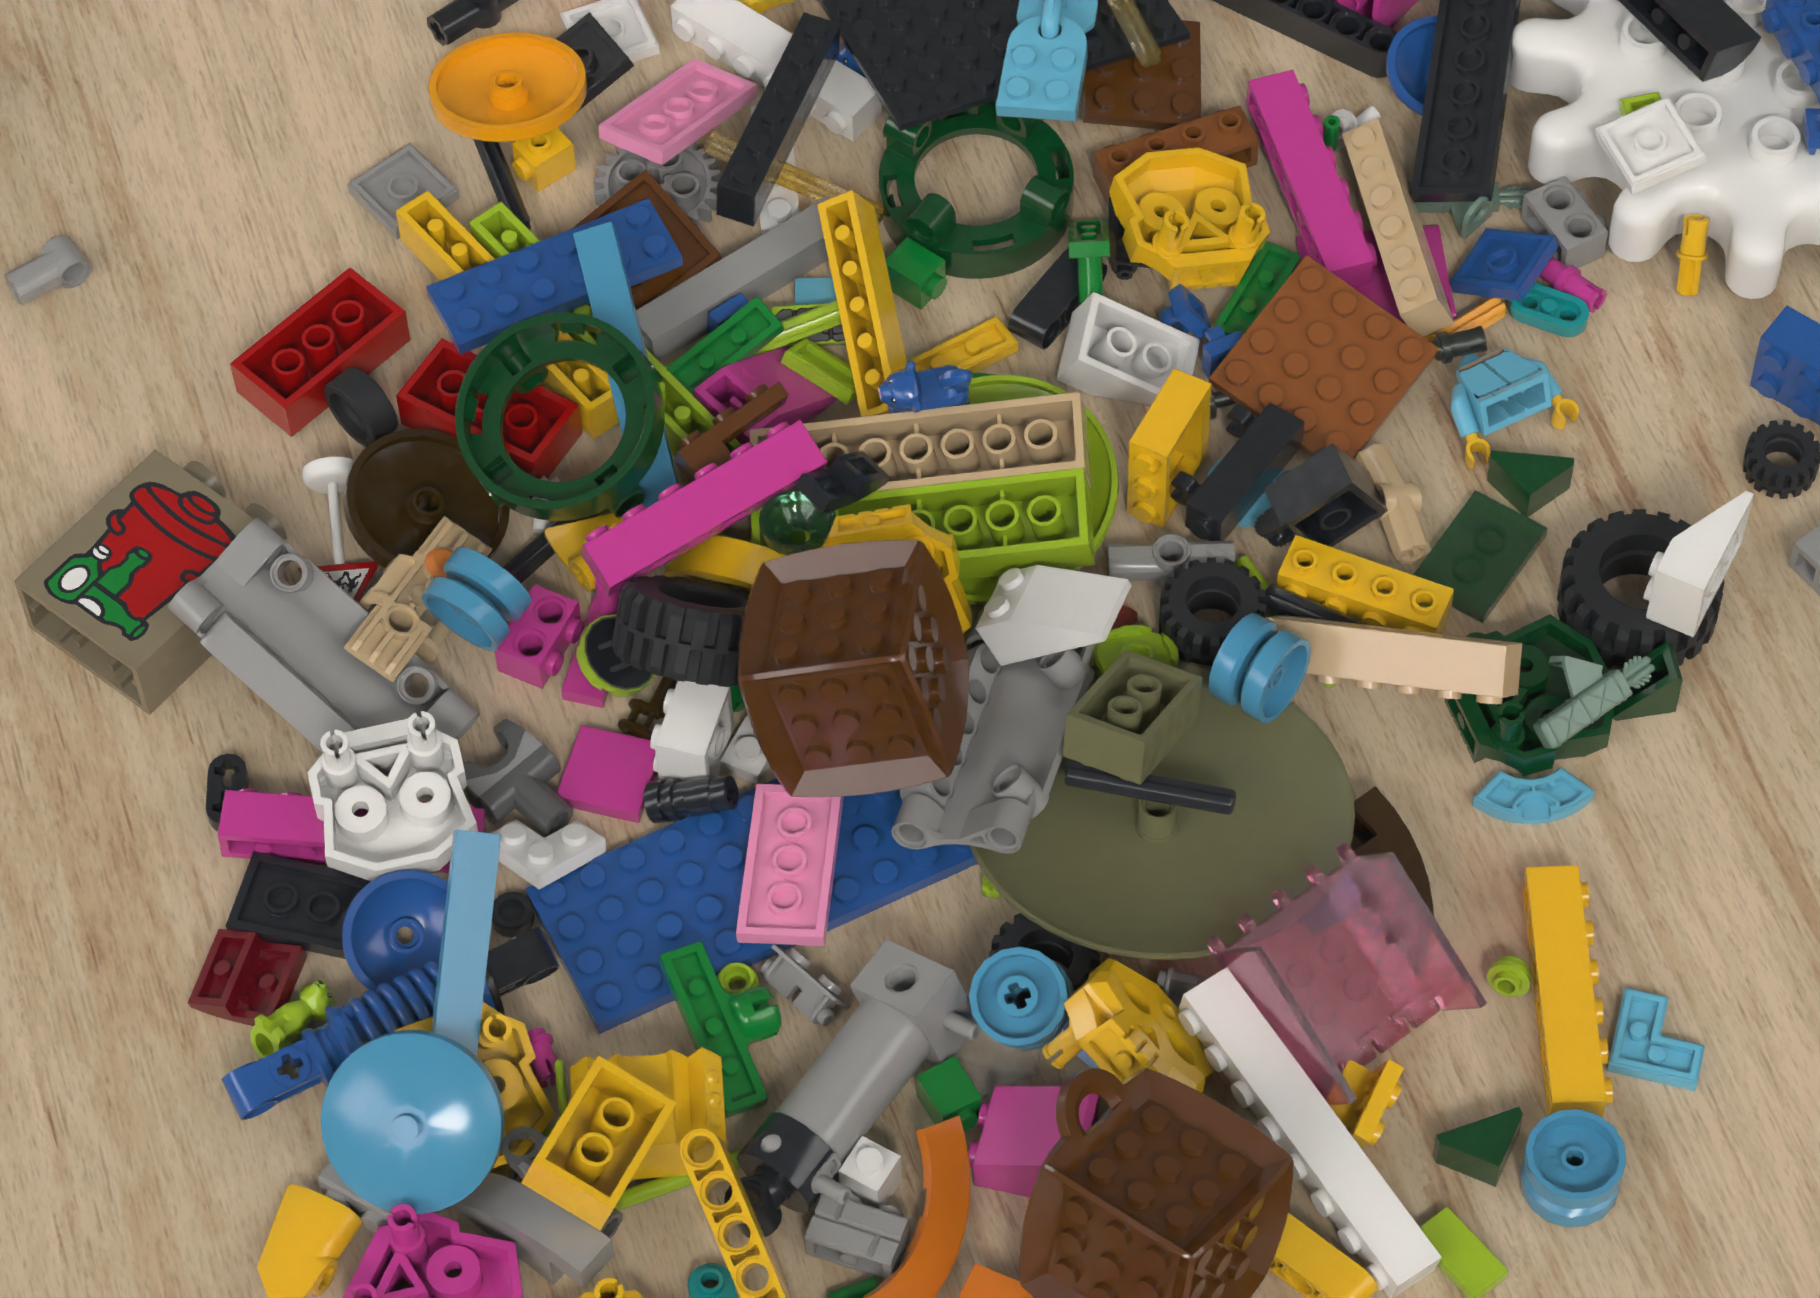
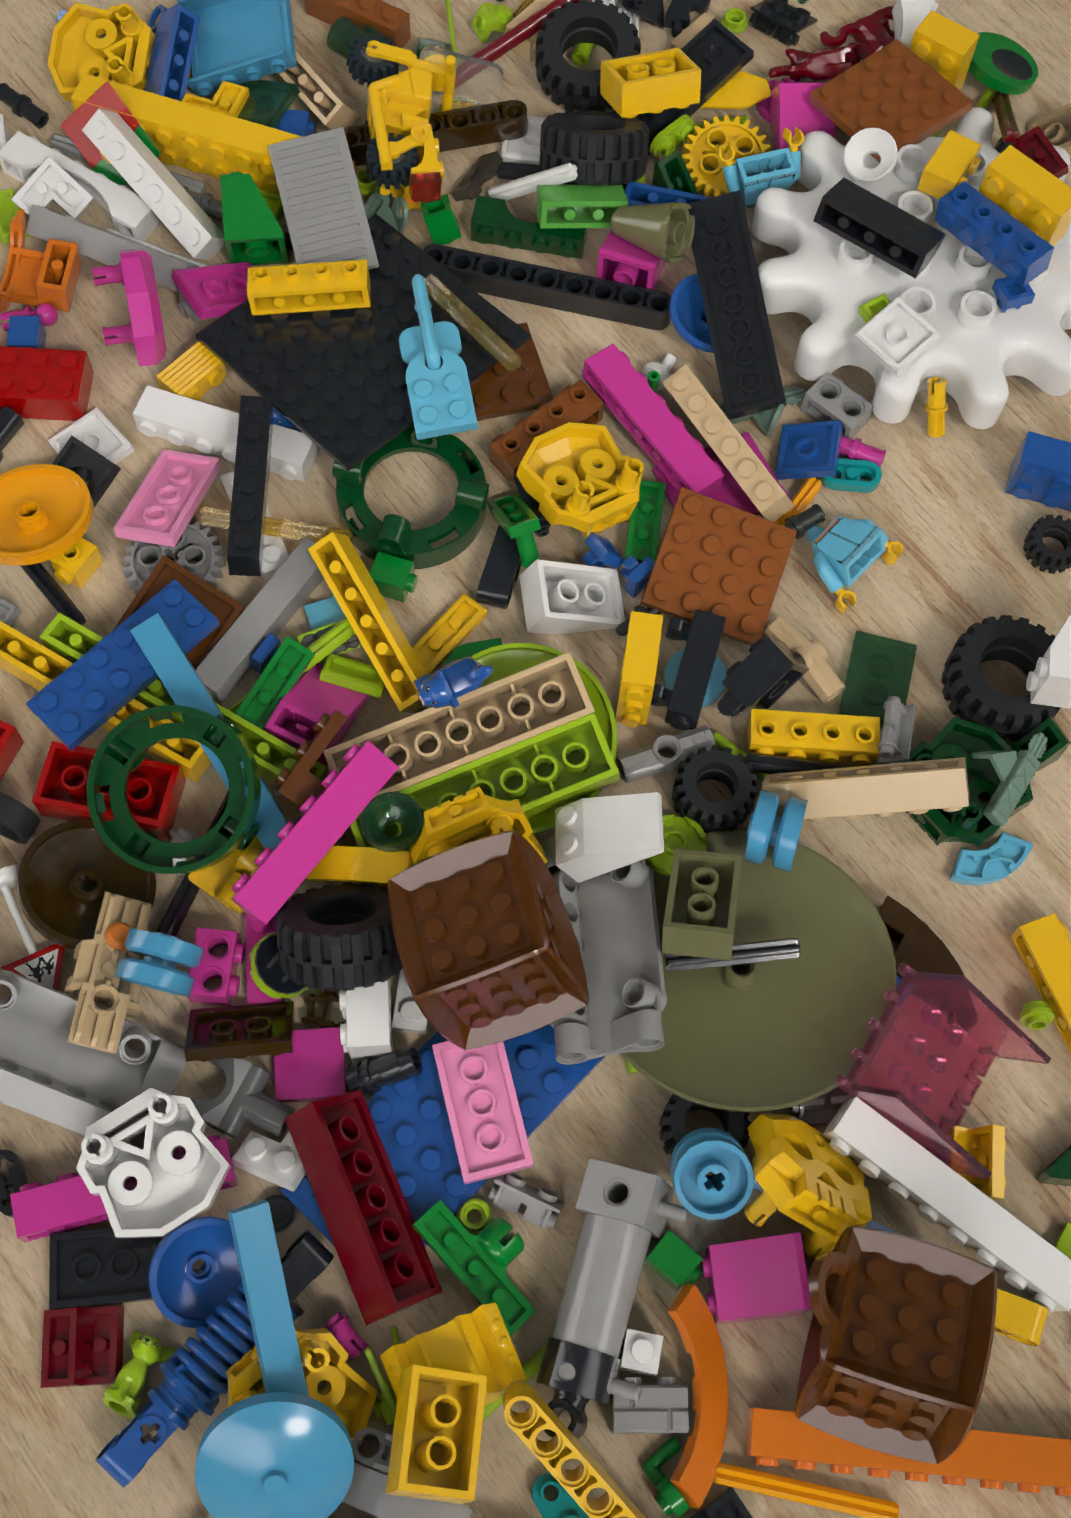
camera: 25 degrees left, 10 degrees up
(542, 707) = (240, 1031): none -> dark brown plate
(611, 919) = (363, 1205): none -> dark red slope
(844, 483) = (415, 778): black slope -> none
(1476, 603) = (896, 731): none -> light grey hinge
(1529, 479) = (889, 611): dark green slope -> none

